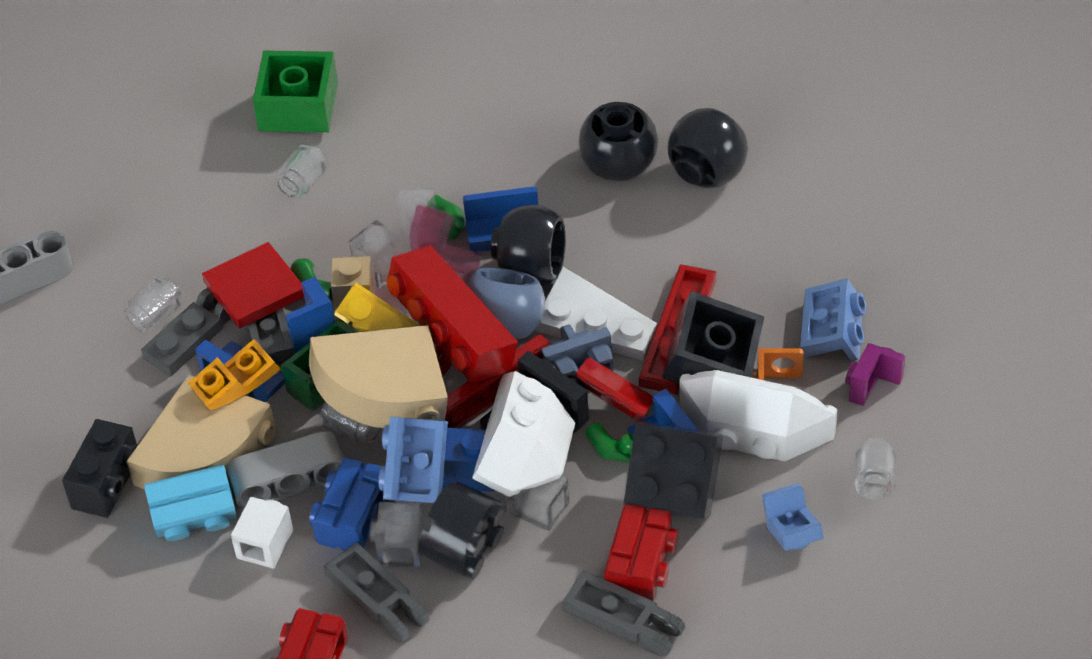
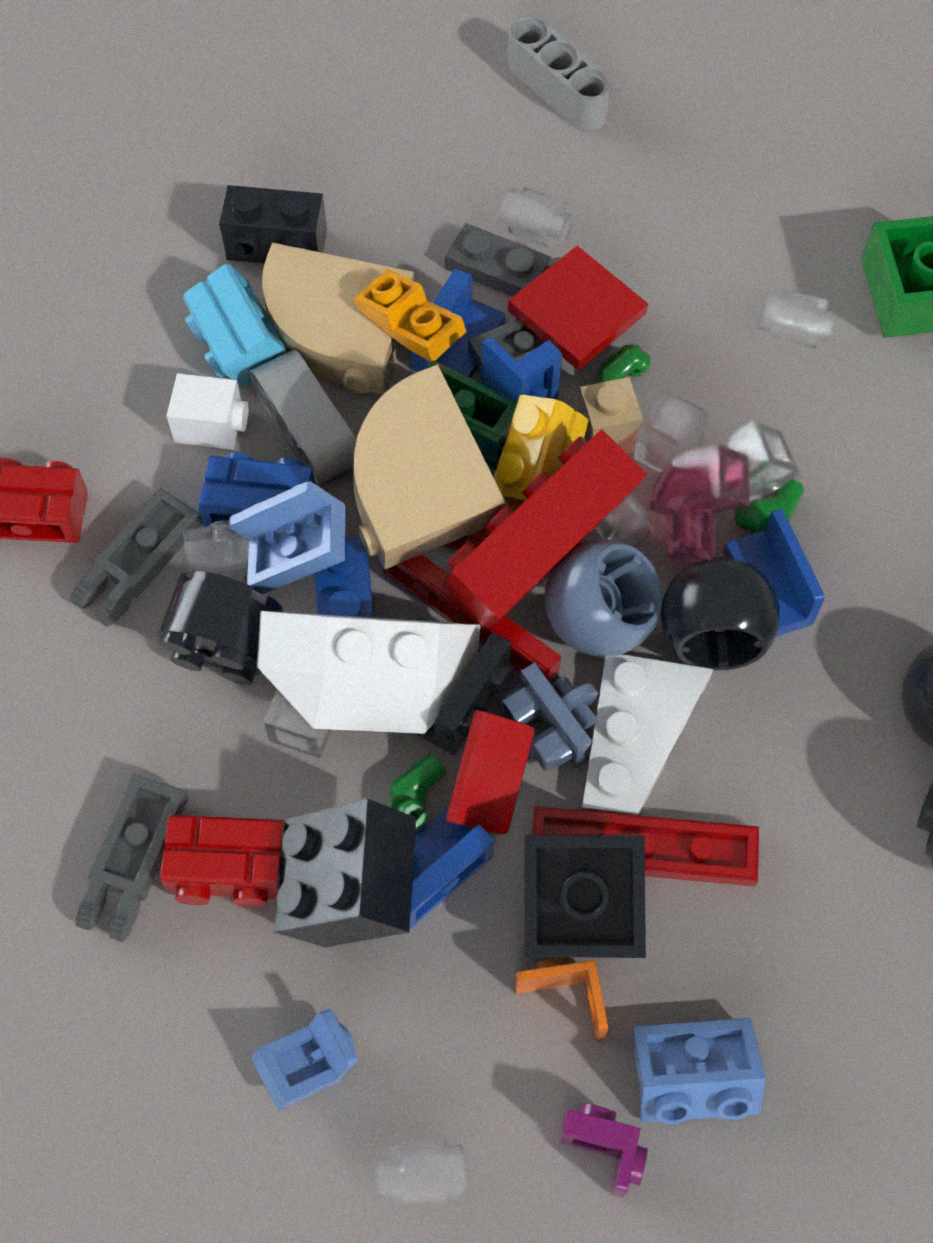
camera: 75 degrees right, 15 degrees up
(757, 414) = (477, 978): white wedge -> none

